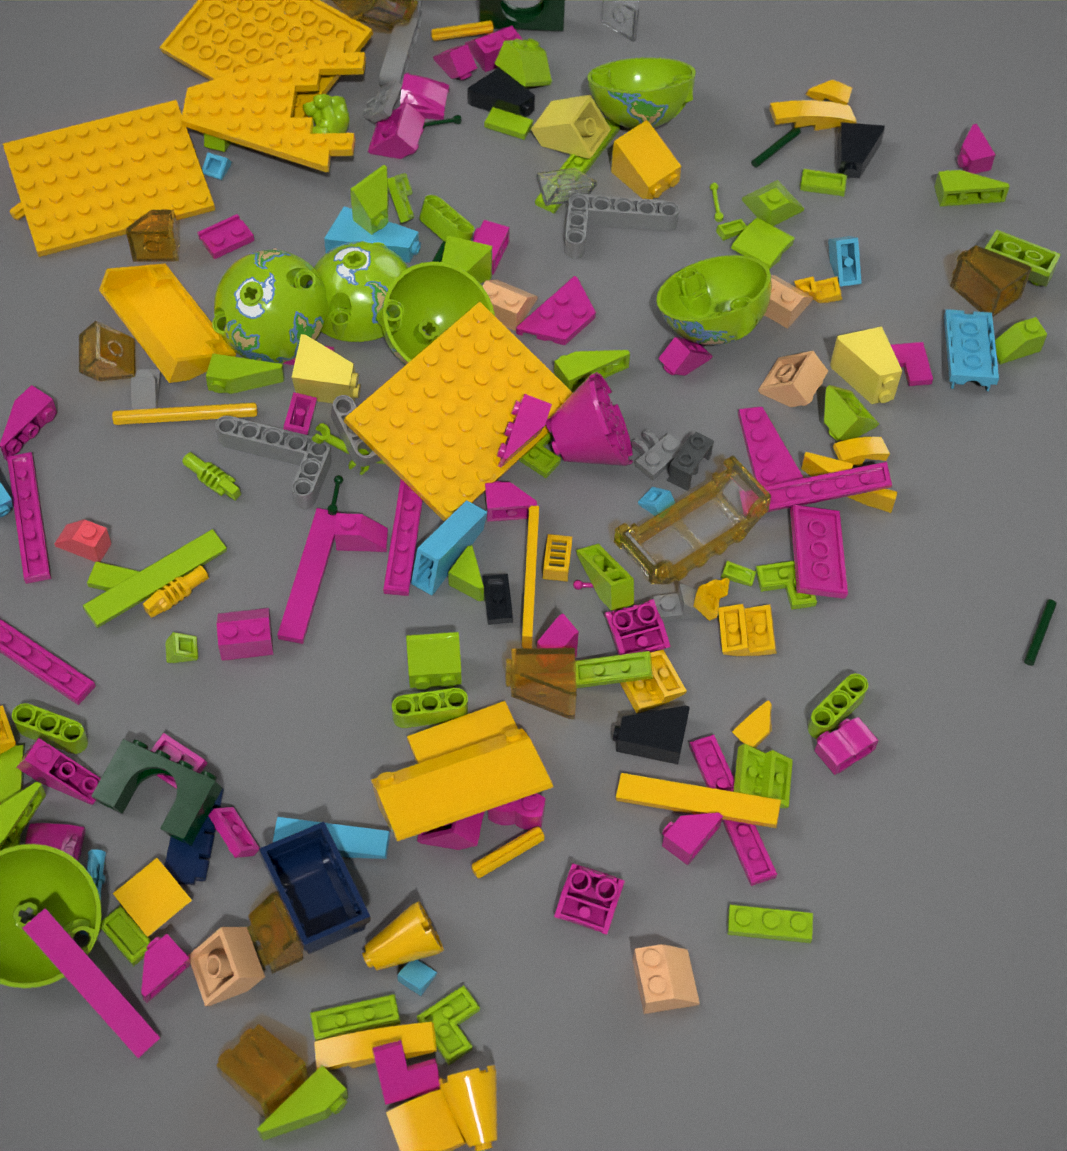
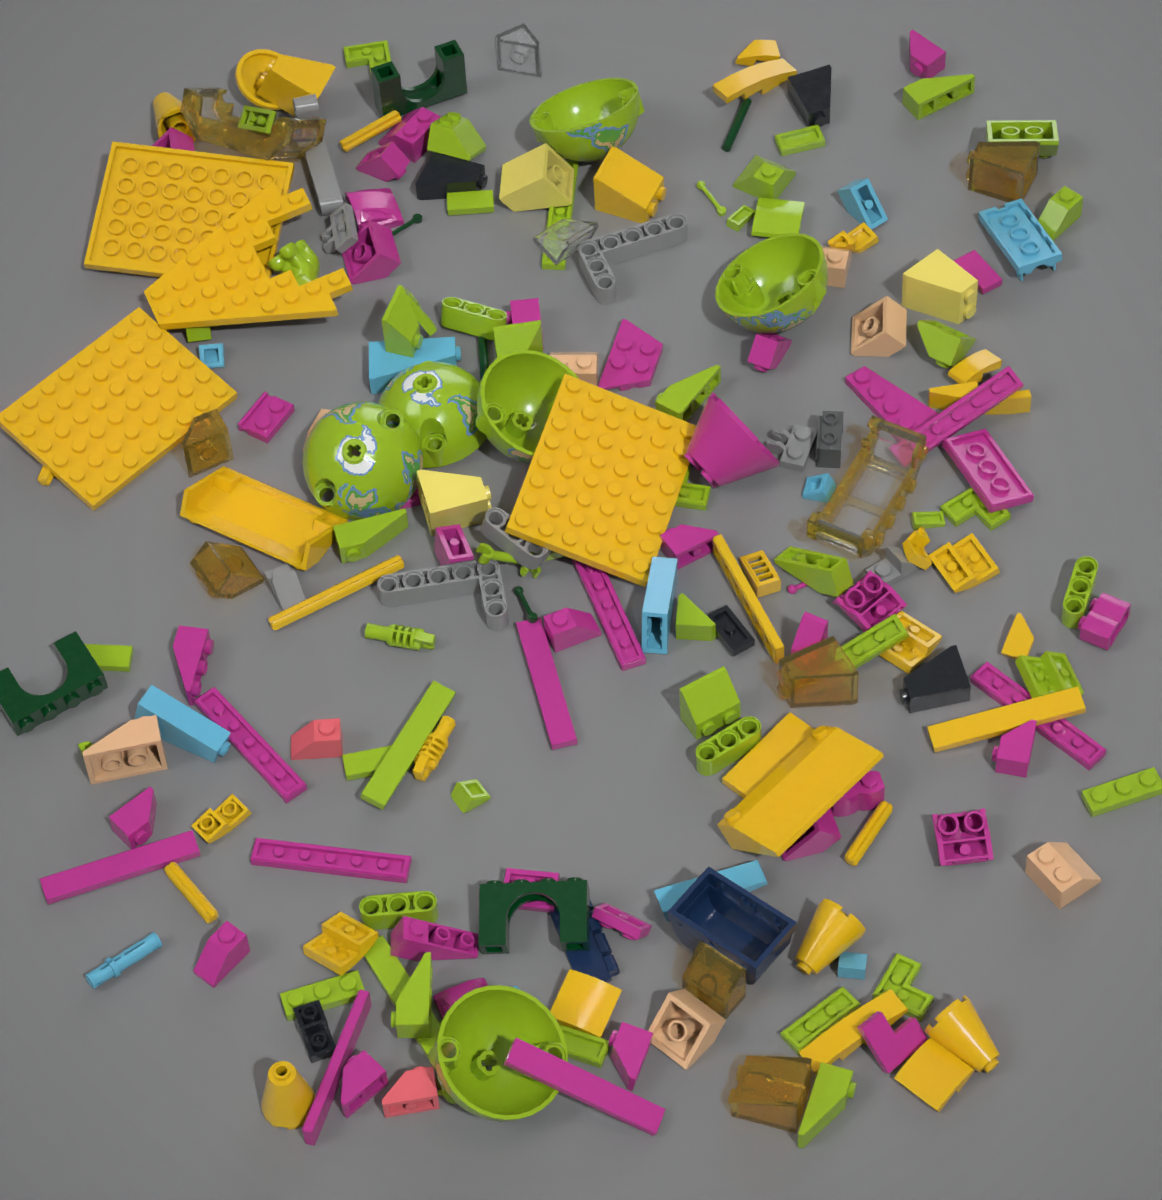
camera: 20 degrees left, 5 degrees down
(244, 634) = (522, 756): dark pink slope -> none
(527, 425) = (669, 464): dark pink slope -> none

